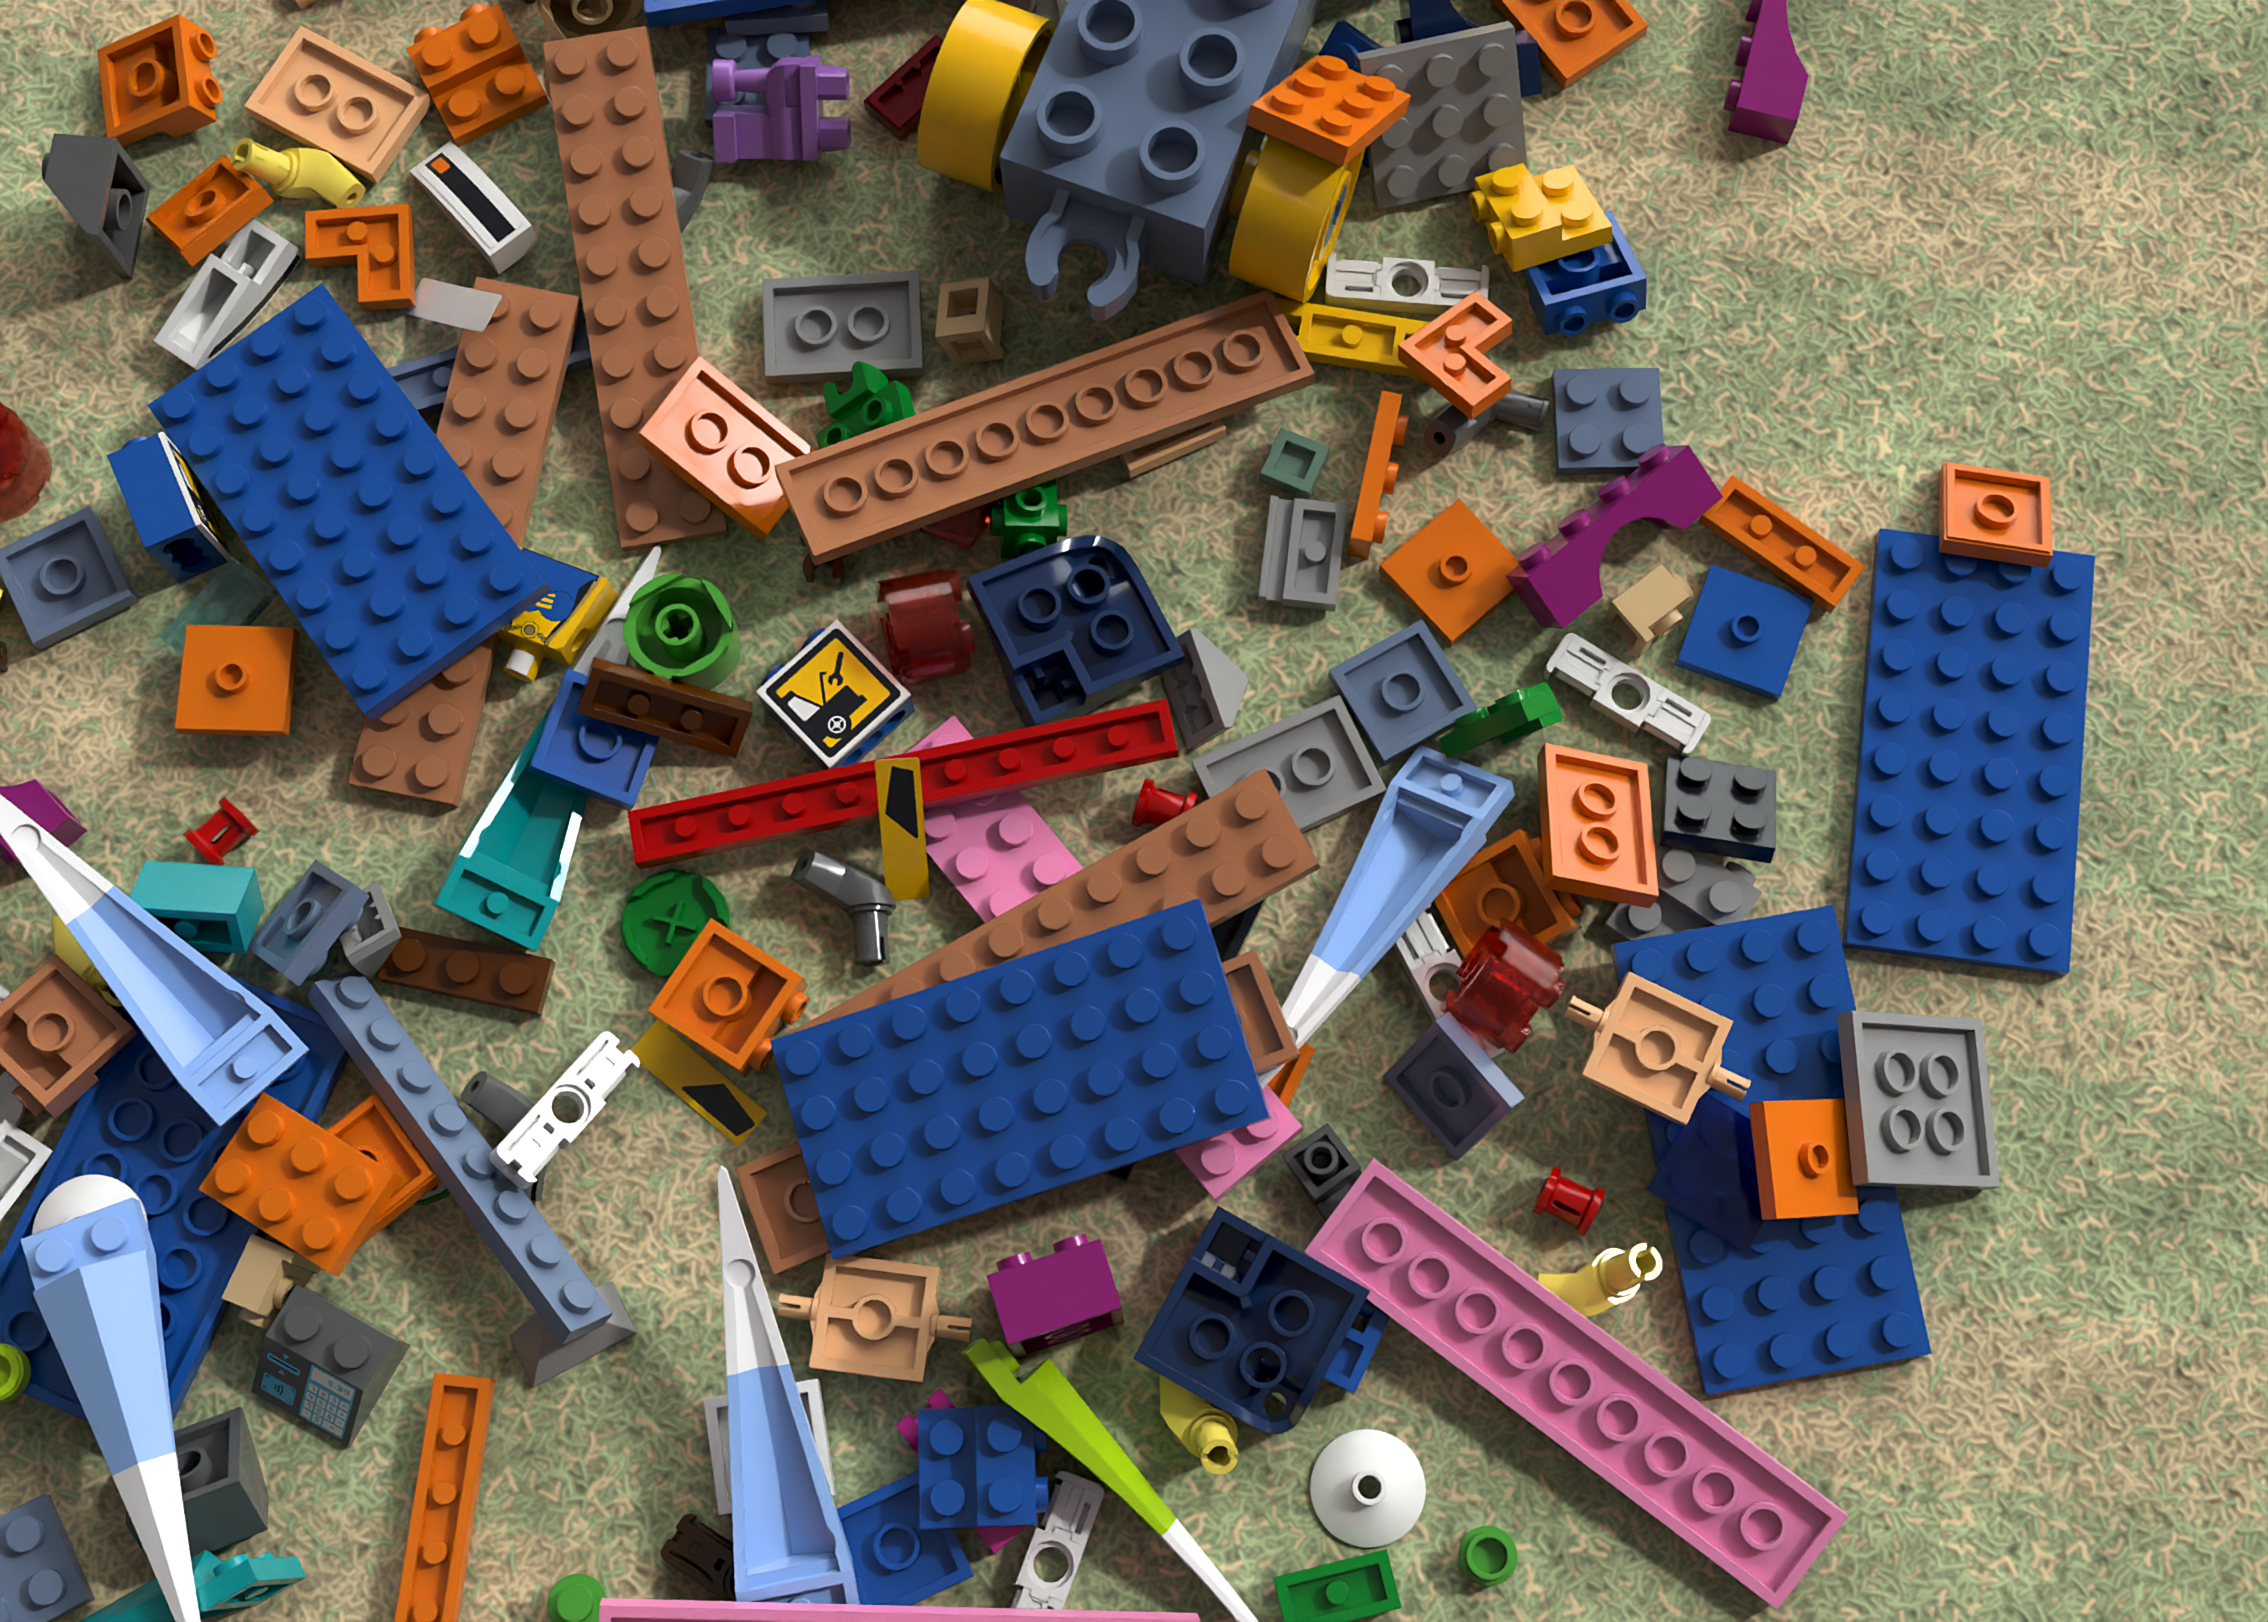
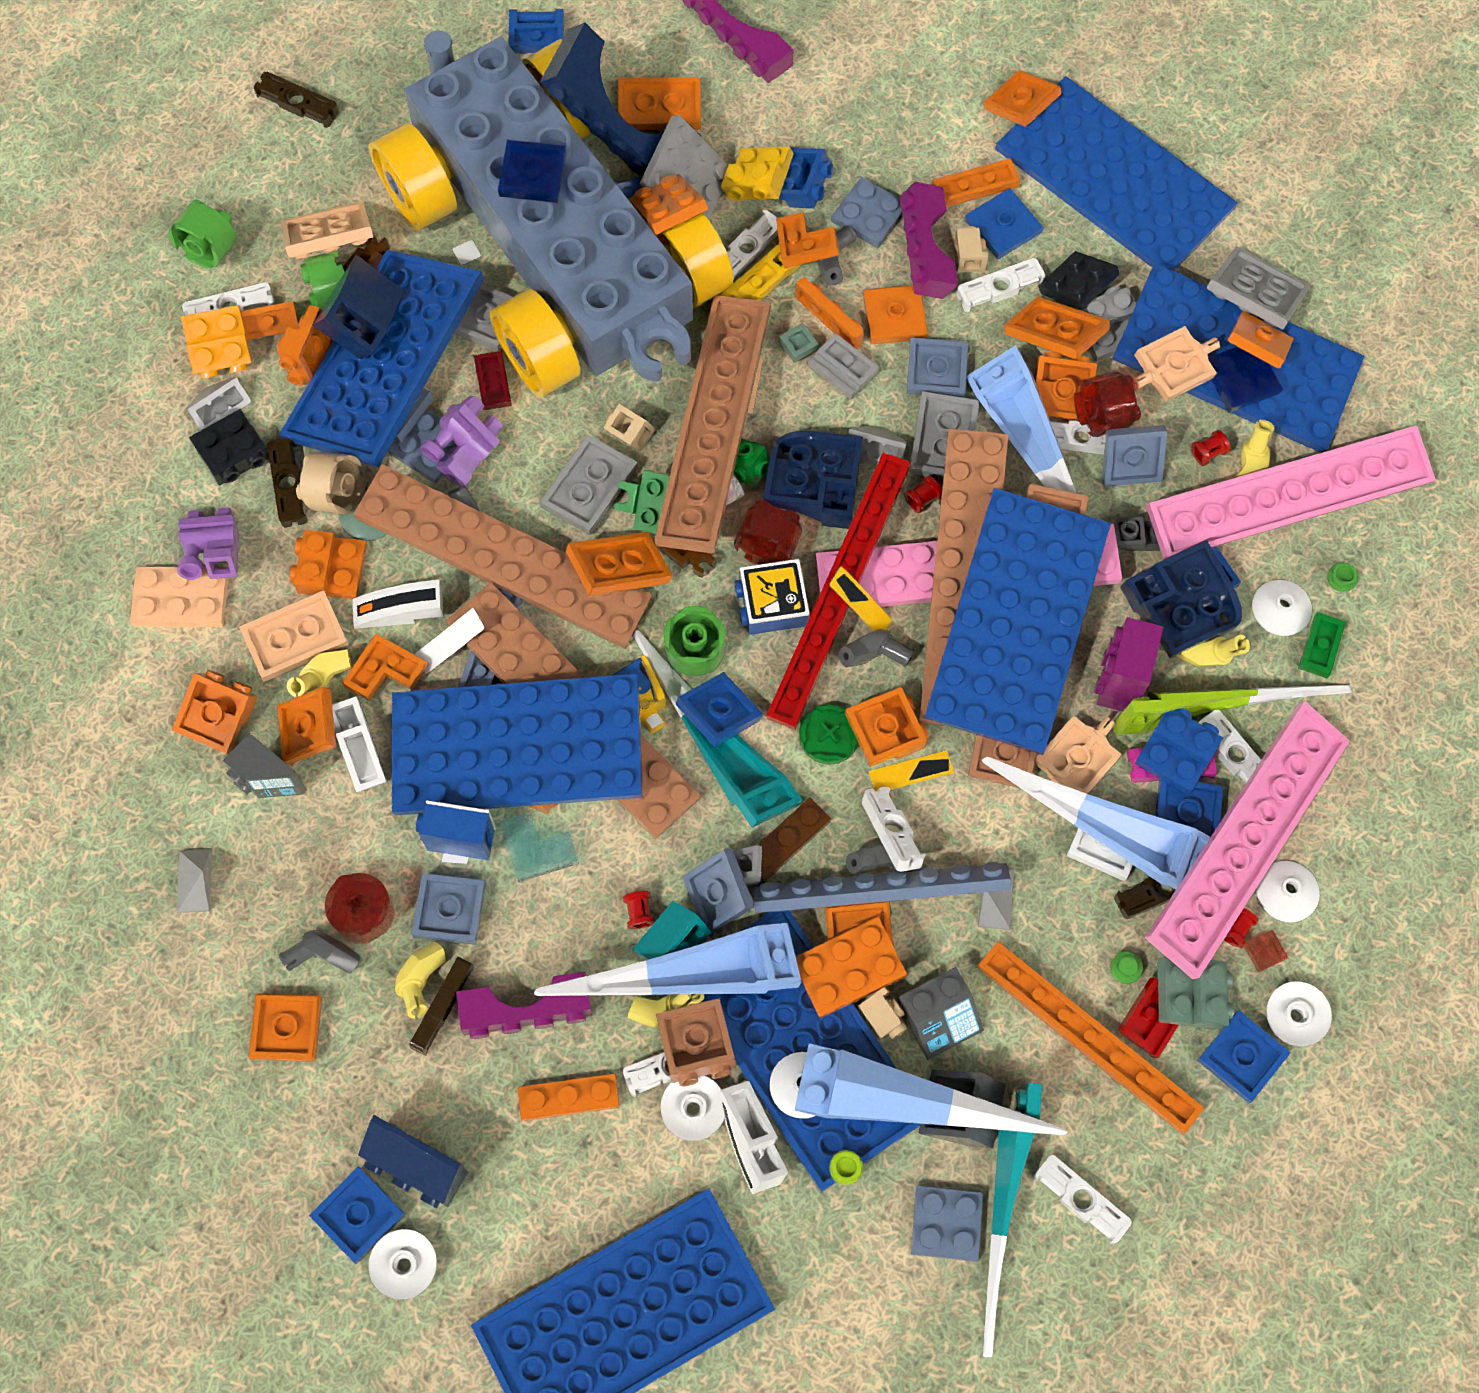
camera: 60 degrees left, 5 degrees down
(237, 680) = (569, 853): orange plate -> none
(664, 707) = (727, 668): reddish brown plate -> none
(1509, 718) = (983, 332): green plate -> none

